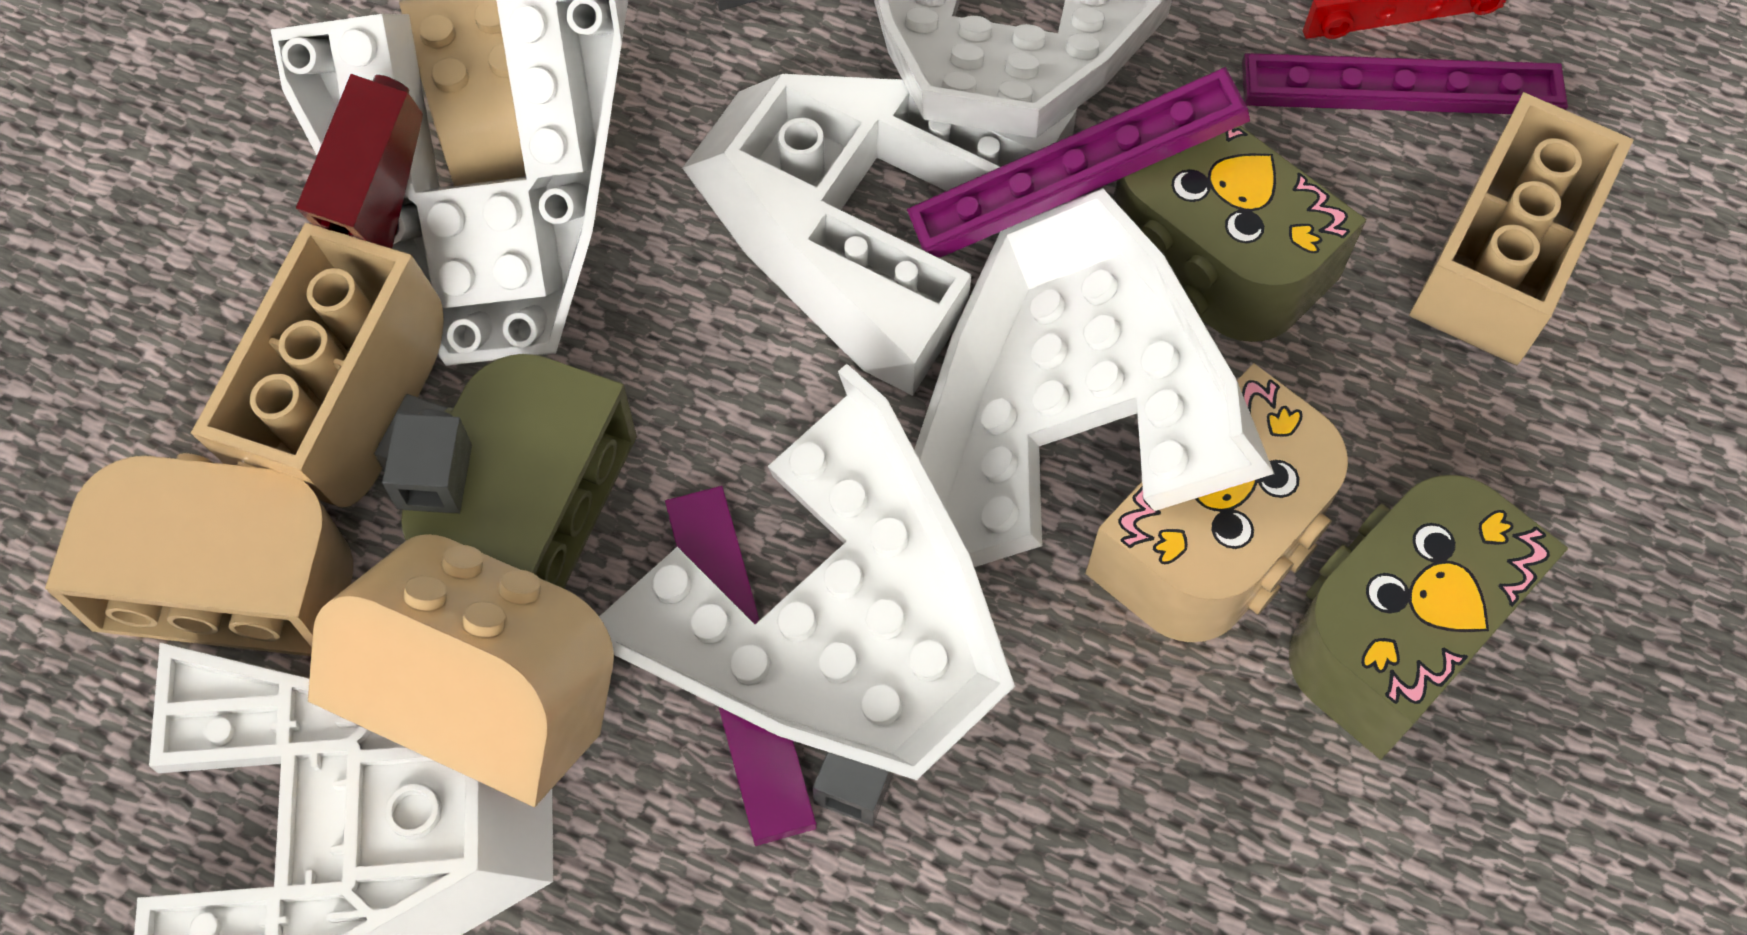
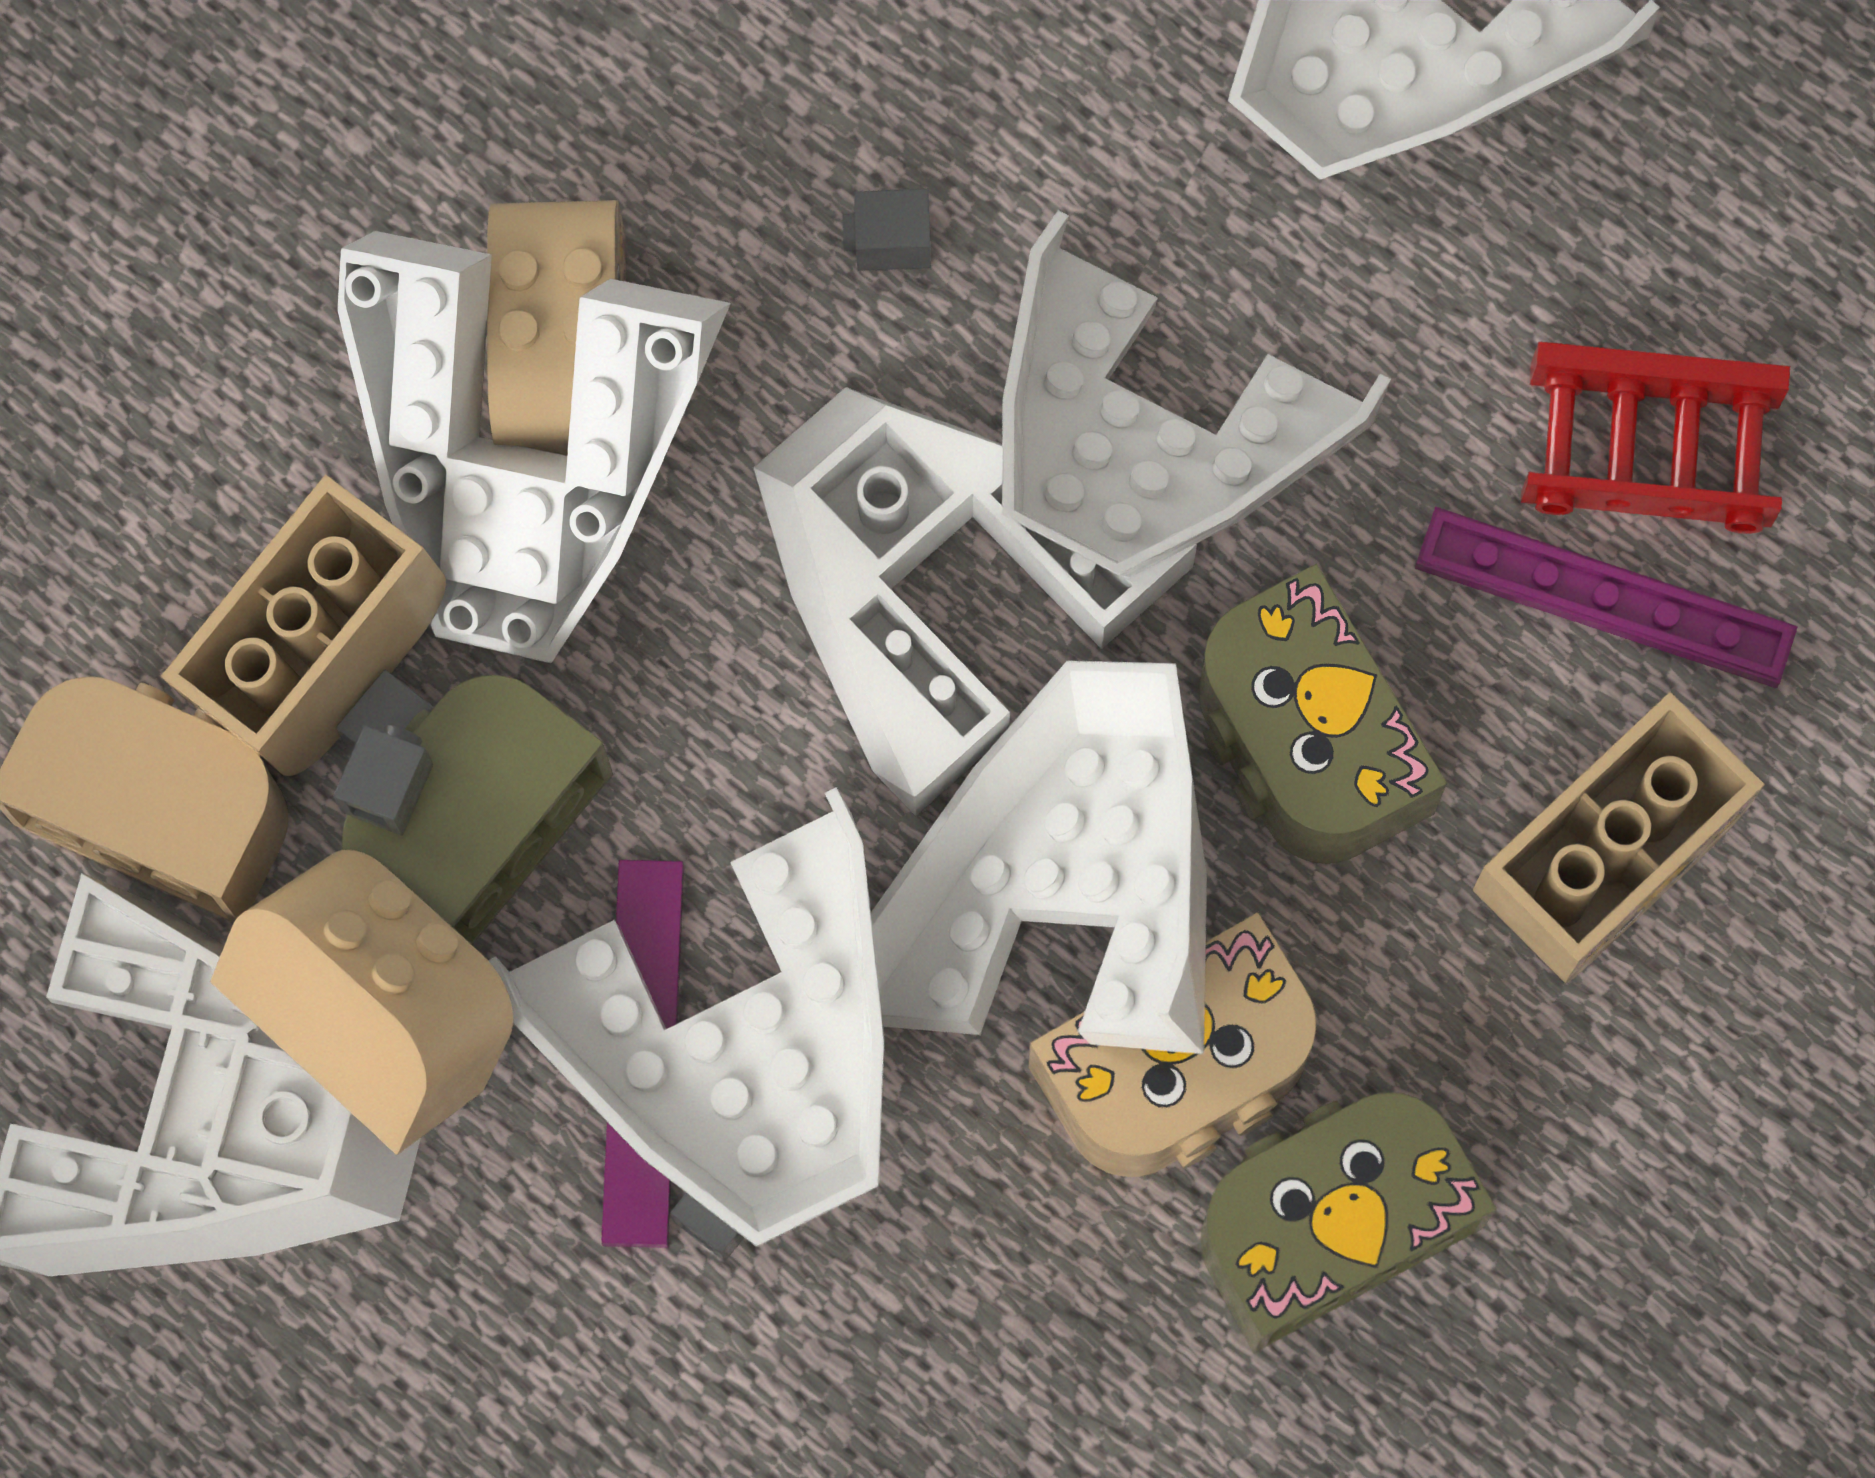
camera: 20 degrees right, 10 degrees up
(364, 161) = (400, 433): dark red slope -> none
(1079, 164) = (1161, 625): magenta tile -> none

